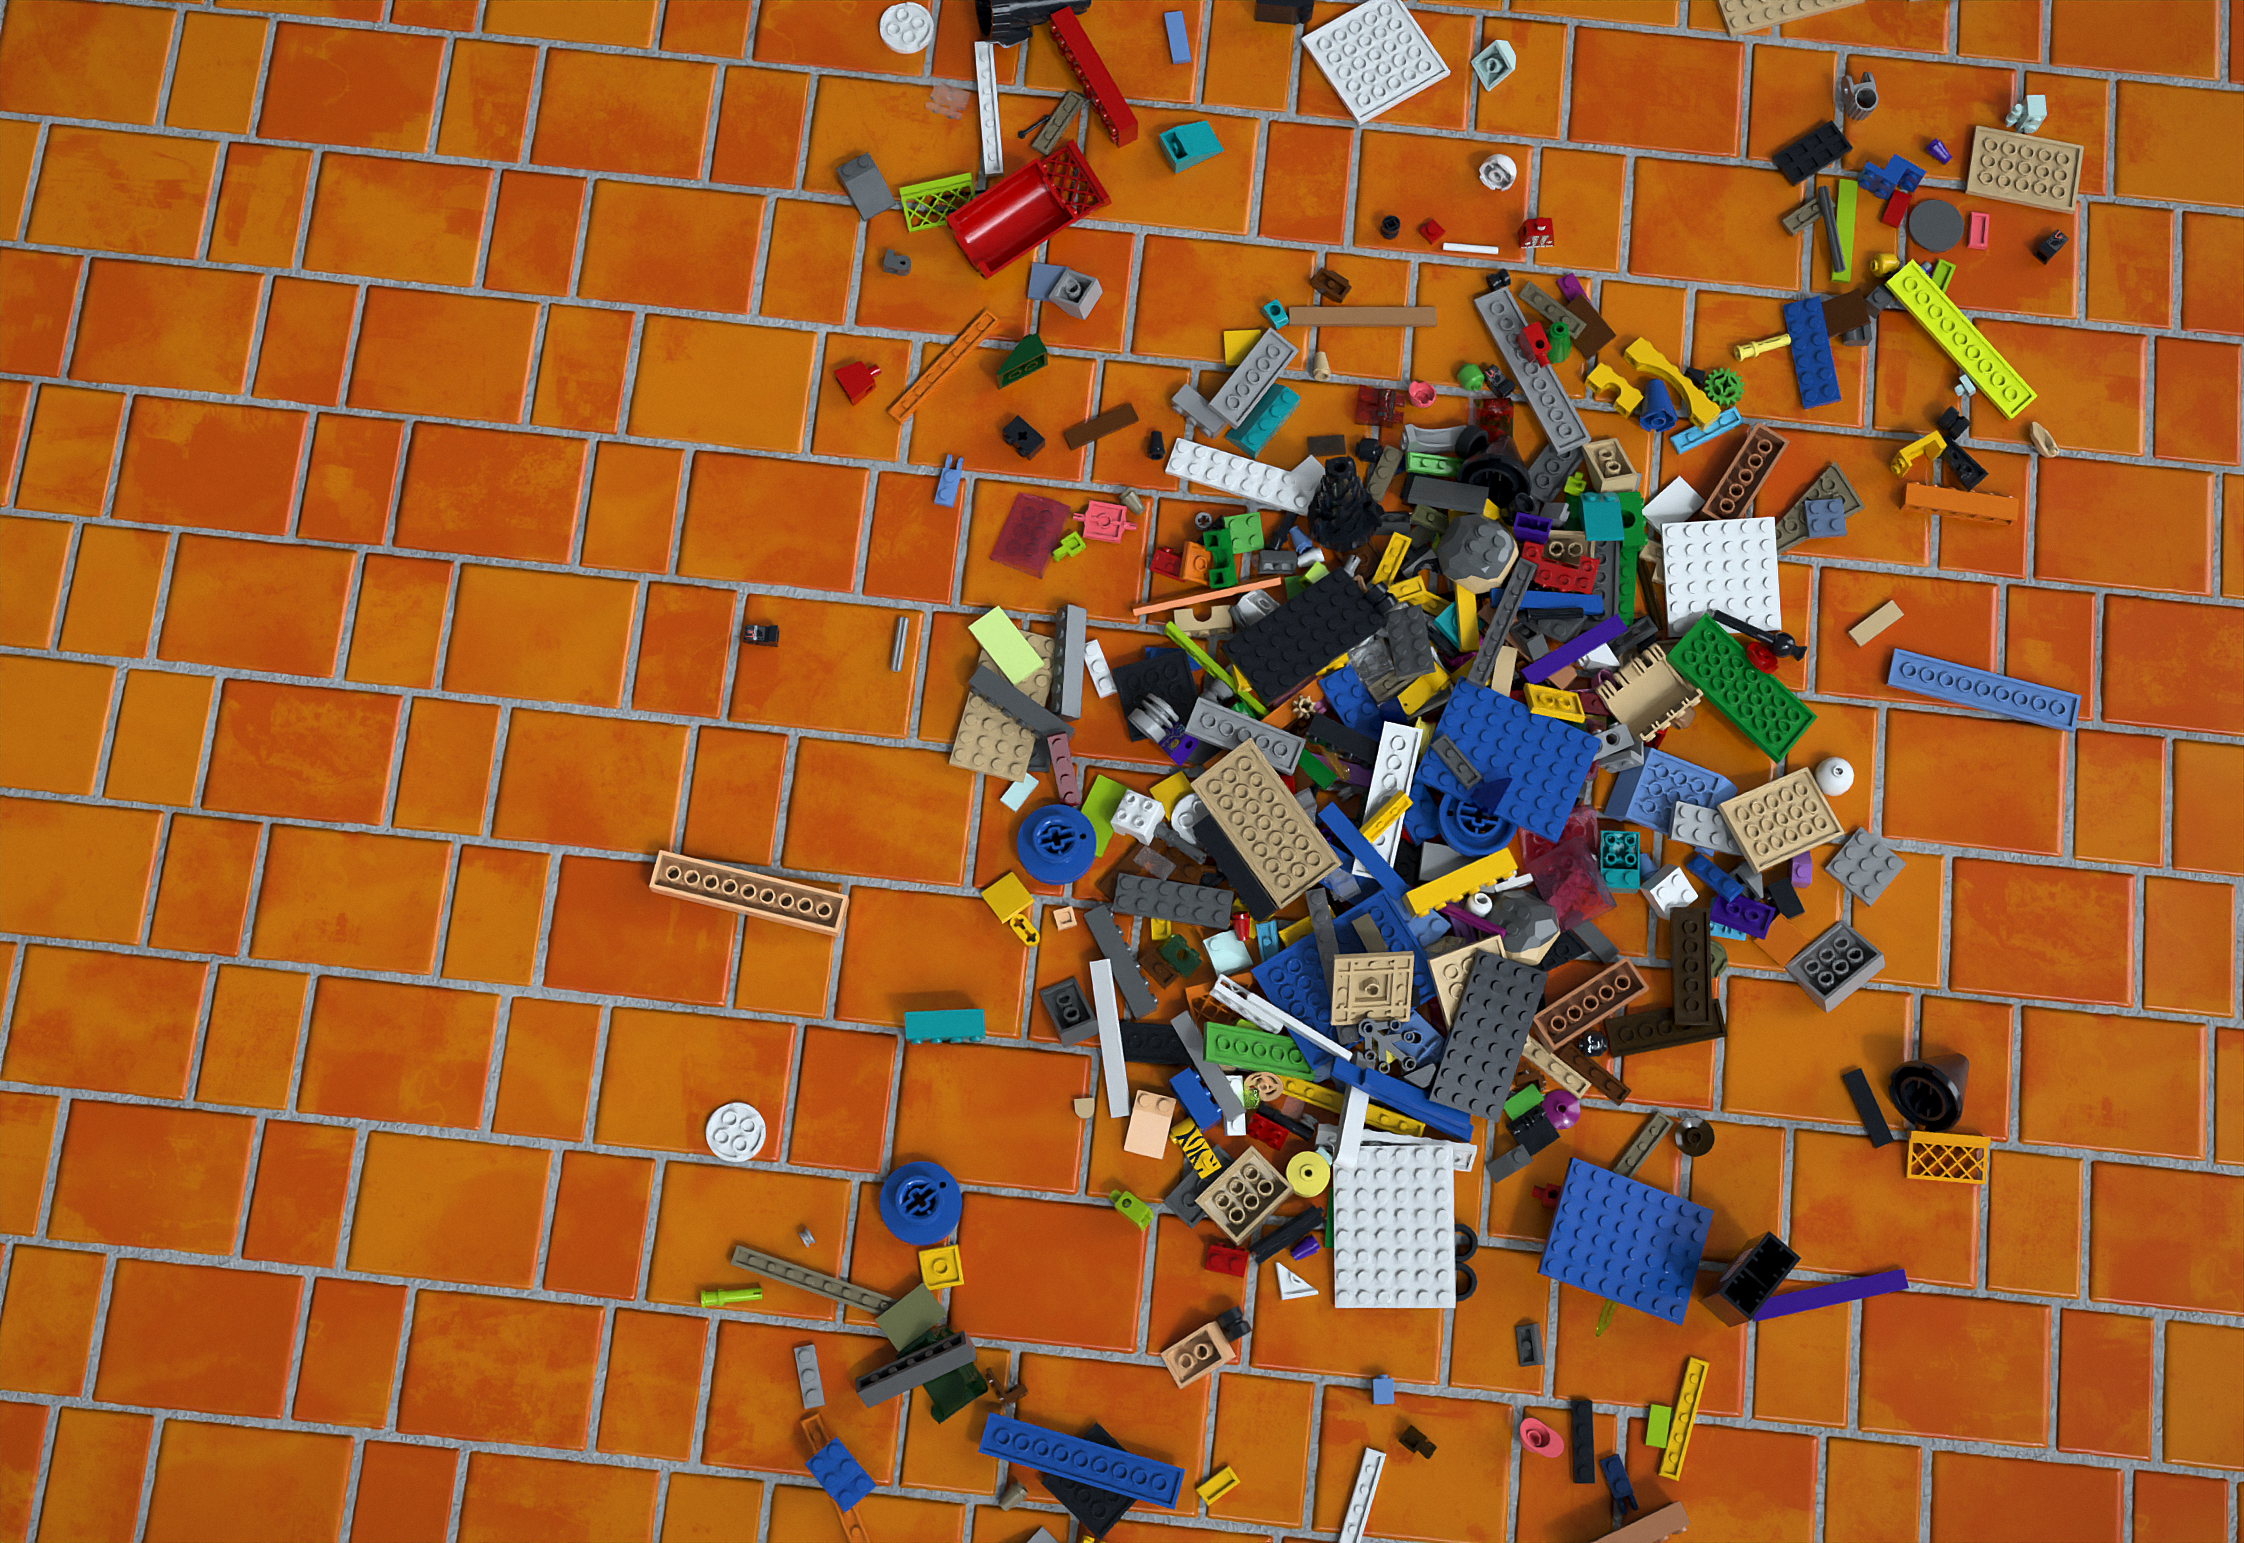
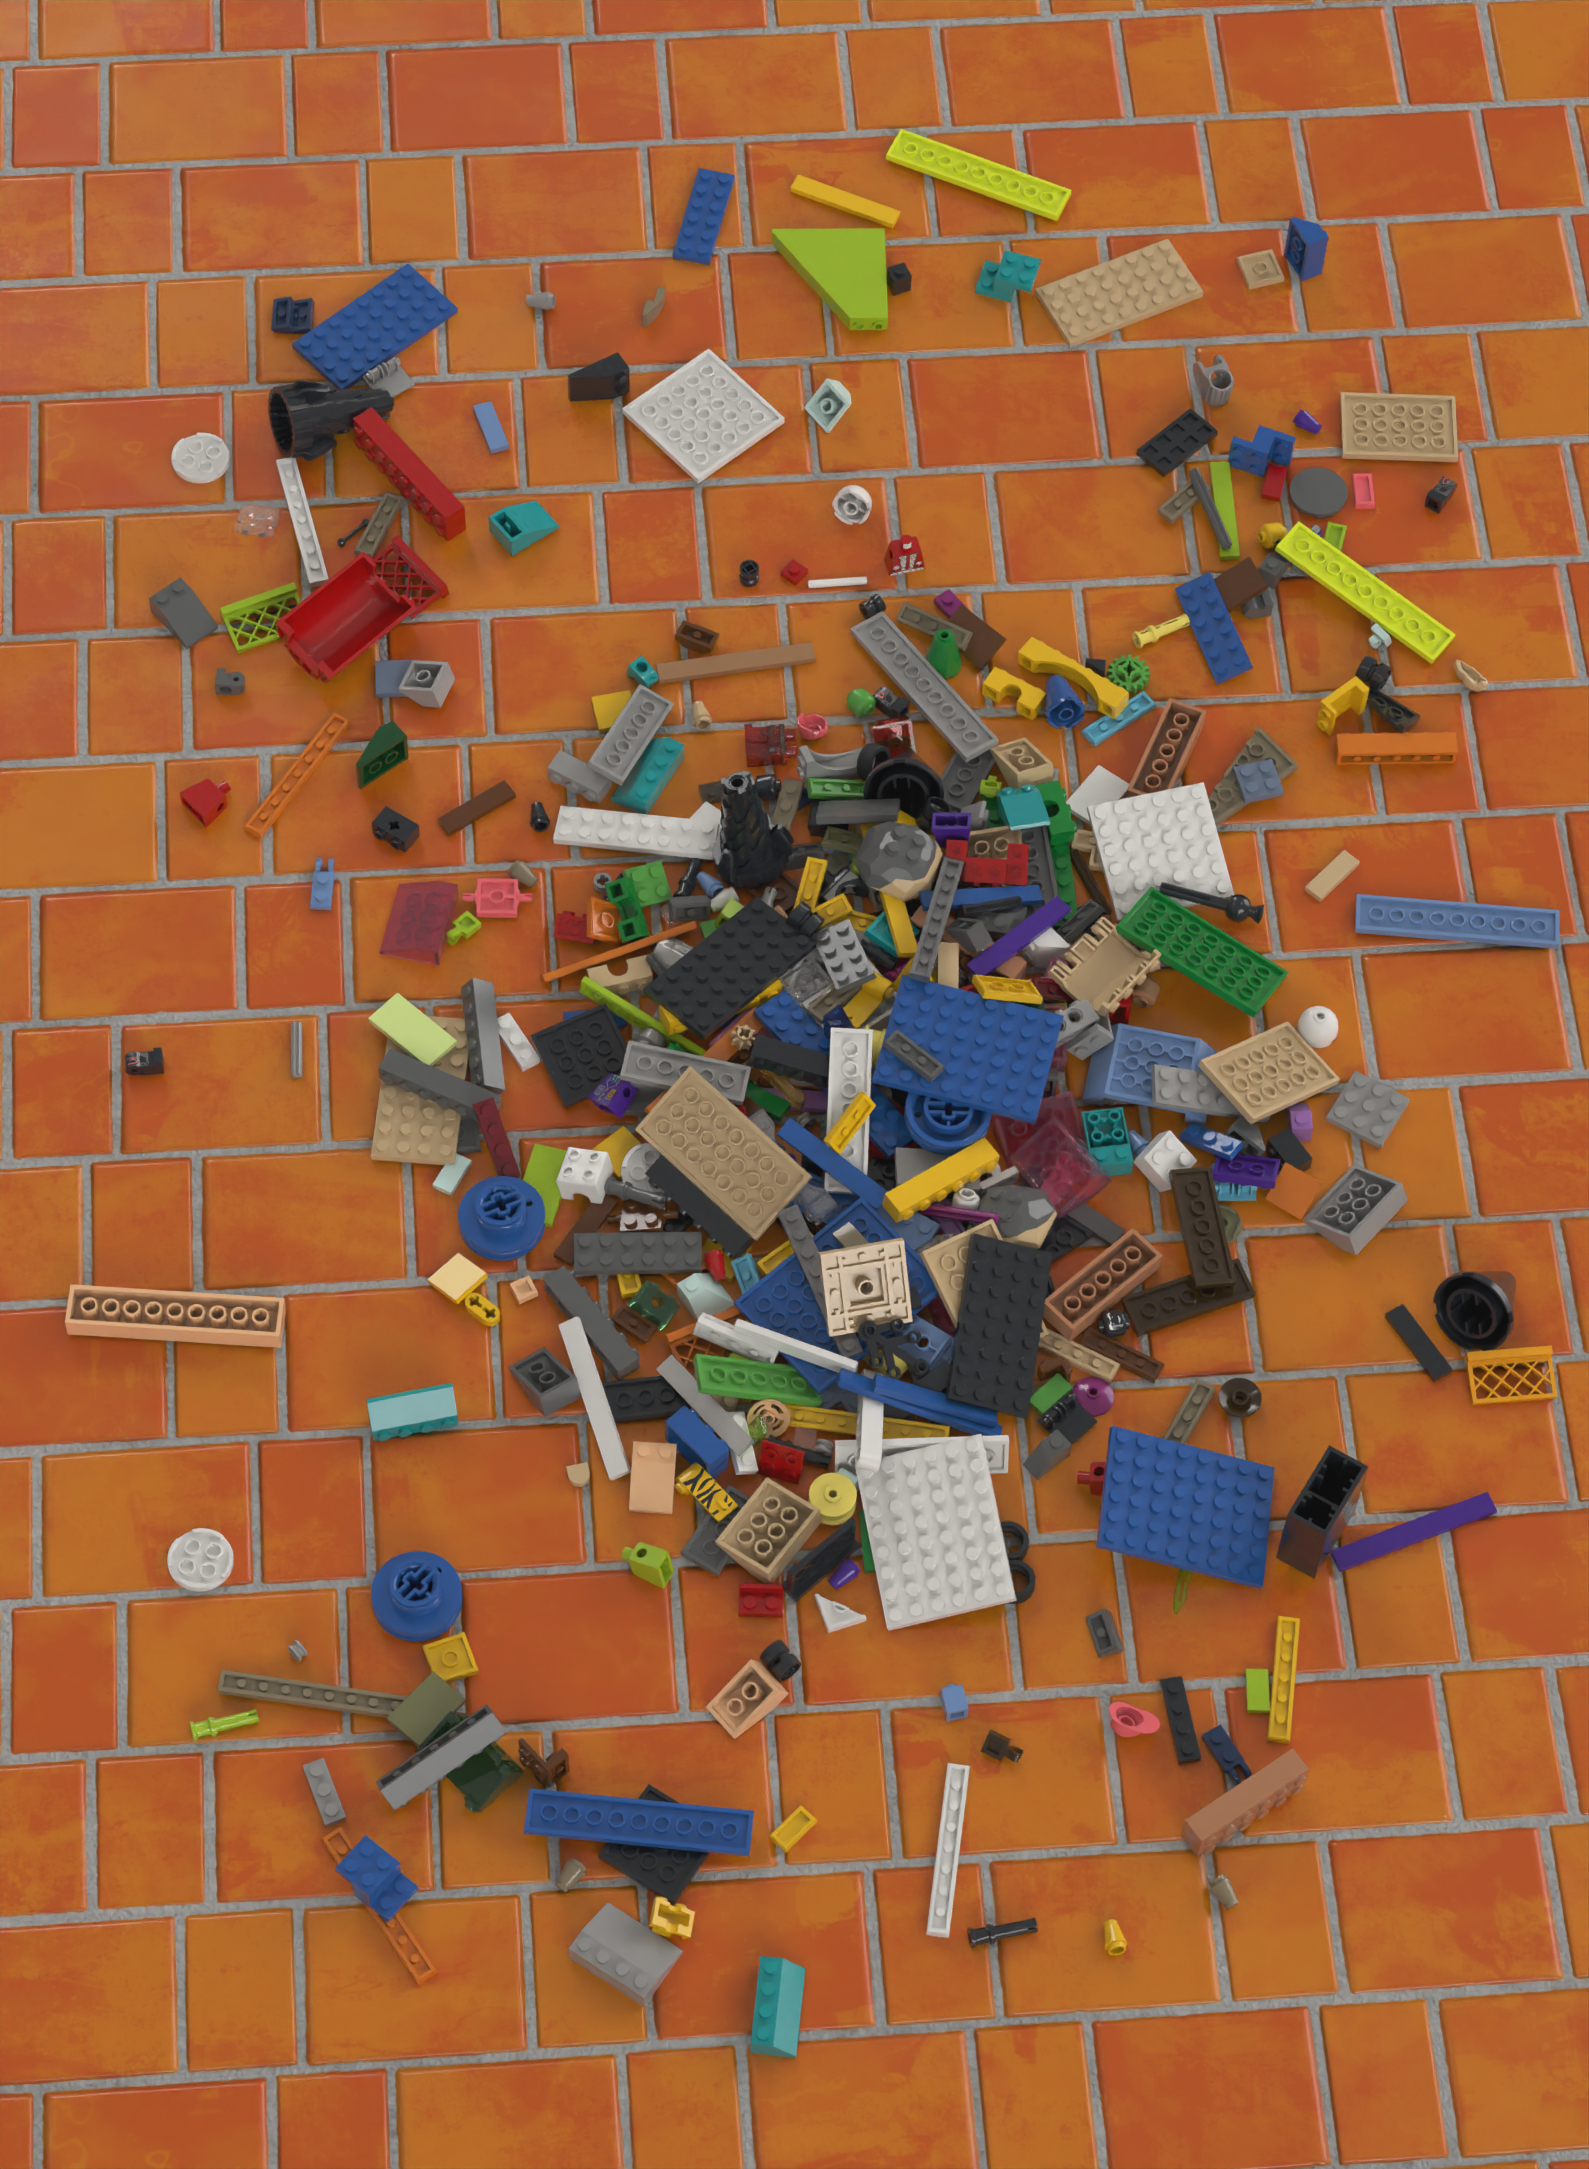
camera: 10 degrees left, 15 degrees down
(1153, 718) = (584, 1072): light grey wheel -> none
(1154, 863) = (611, 1217): clear tile -> none
(1490, 795) = (955, 1080): clear blue slope -> none
(1534, 344) = (921, 656): red torso -> none
(1761, 657) = (1218, 923): red tile -> none
(2028, 114) = (1390, 373): light aqua brick -> none

